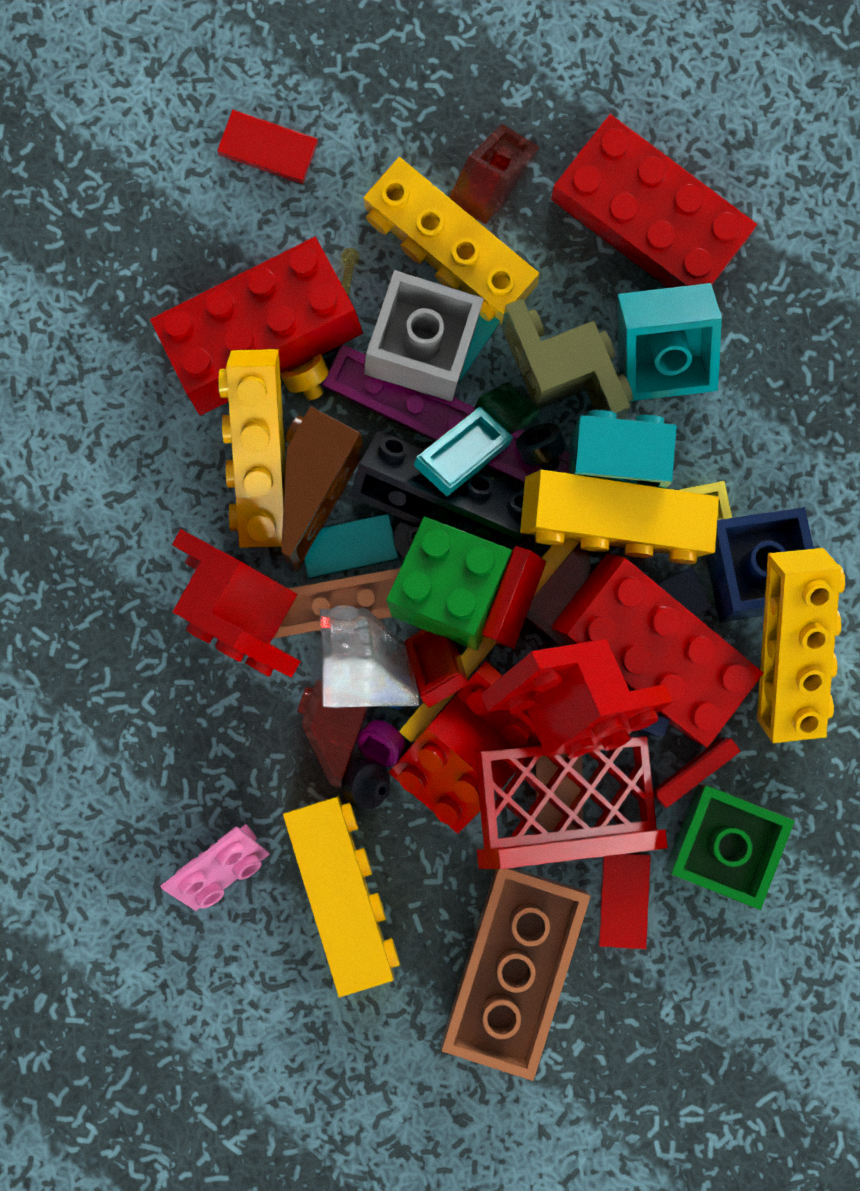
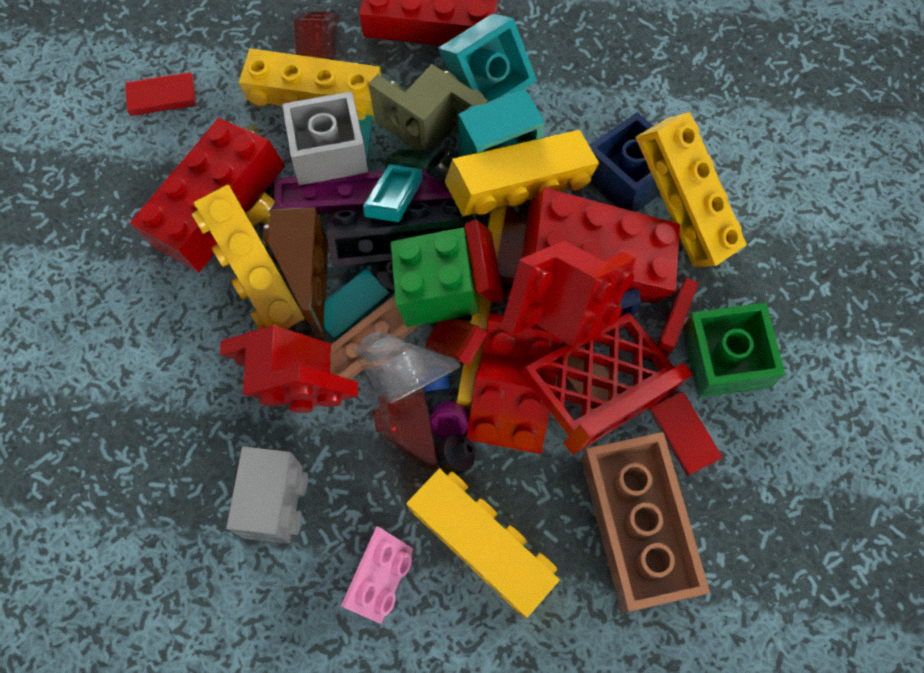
camera: 30 degrees left, 15 degrees down
(145, 724) = (267, 495): none -> light grey brick

